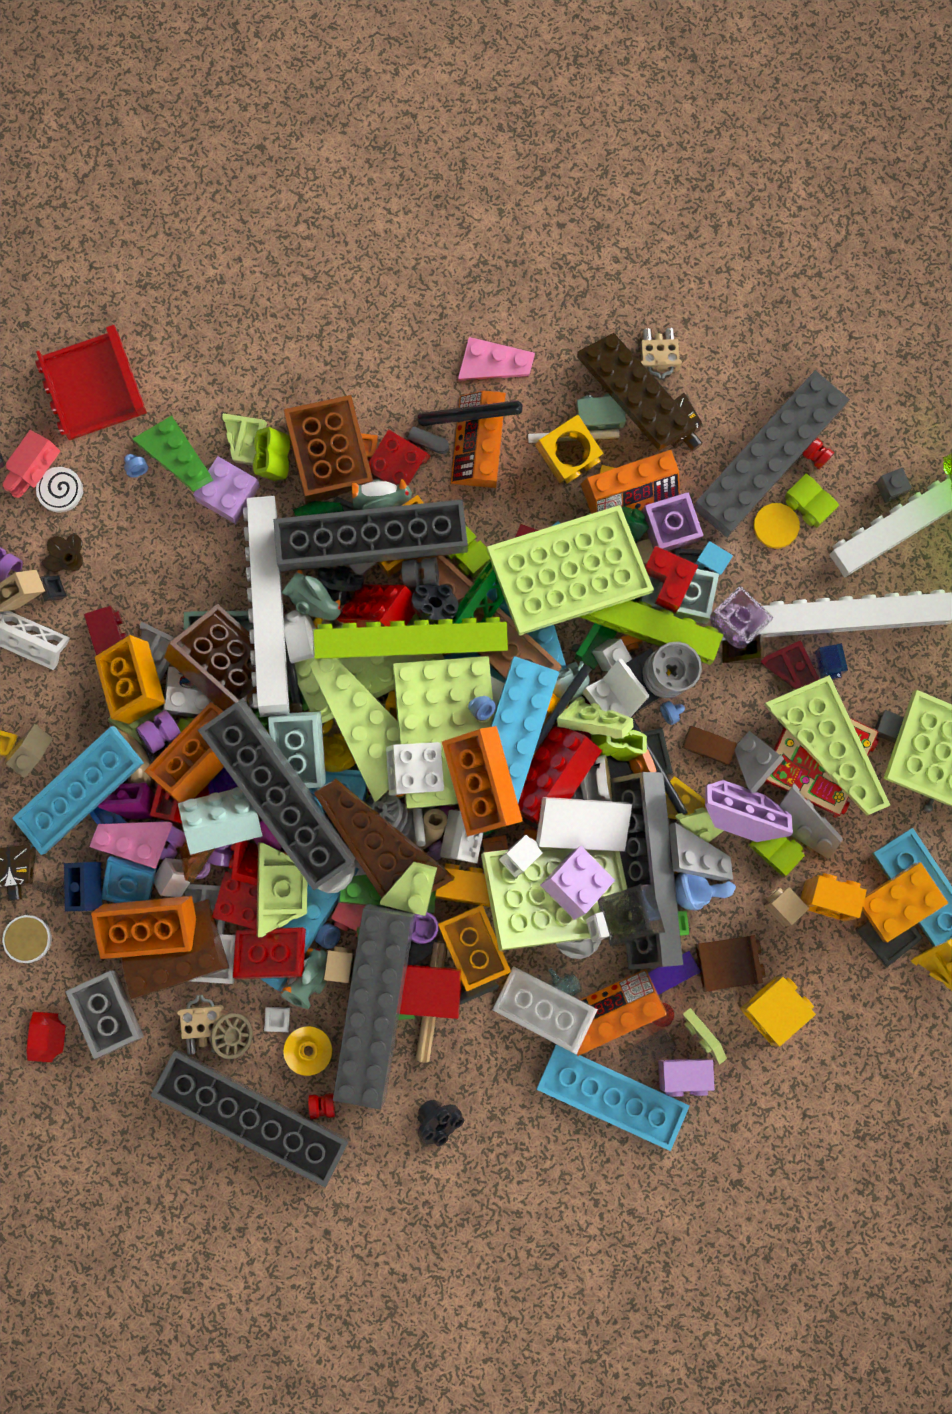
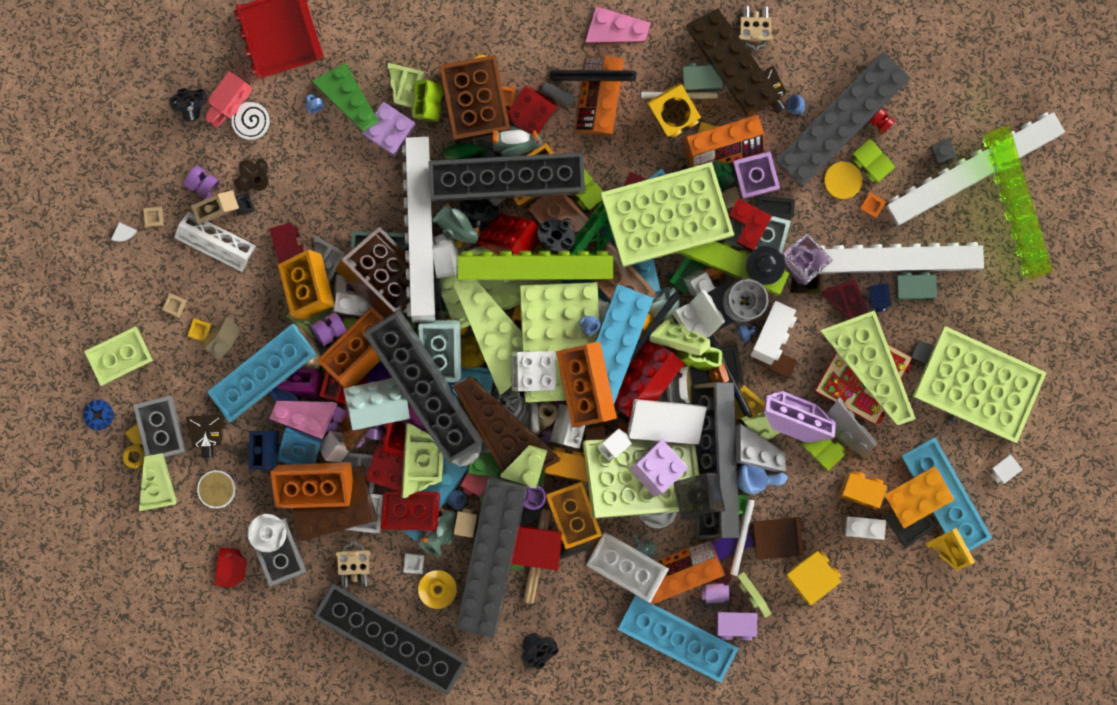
camera: 10 degrees right, 5 degrees up
(88, 991) = (267, 533): none -> white tile
(230, 1035) = (377, 574): dark tan wheel -> none
(327, 1106) = (450, 630): red wheel -> none
(412, 572) = (538, 208): dark grey wheel -> none
(597, 927) = (672, 504): white tile -> none
(657, 1037) = (715, 593): none -> lavender brick
(684, 969) = (742, 537): none -> white bar
(694, 625) = (765, 265): none -> black plate
(707, 710) = (774, 333): none -> white brick
(713, 439) = (796, 105): none -> medium blue tile
(714, 558) = (787, 208): medium azure panel -> none
(756, 760) = (811, 376): light grey wing -> none
(785, 906) = (825, 495): tan brick -> none
(814, 553) = (872, 205): none -> orange plate
(836, 944) = (865, 528): none -> white brick
(875, 646) = (916, 286): none -> sand green brick

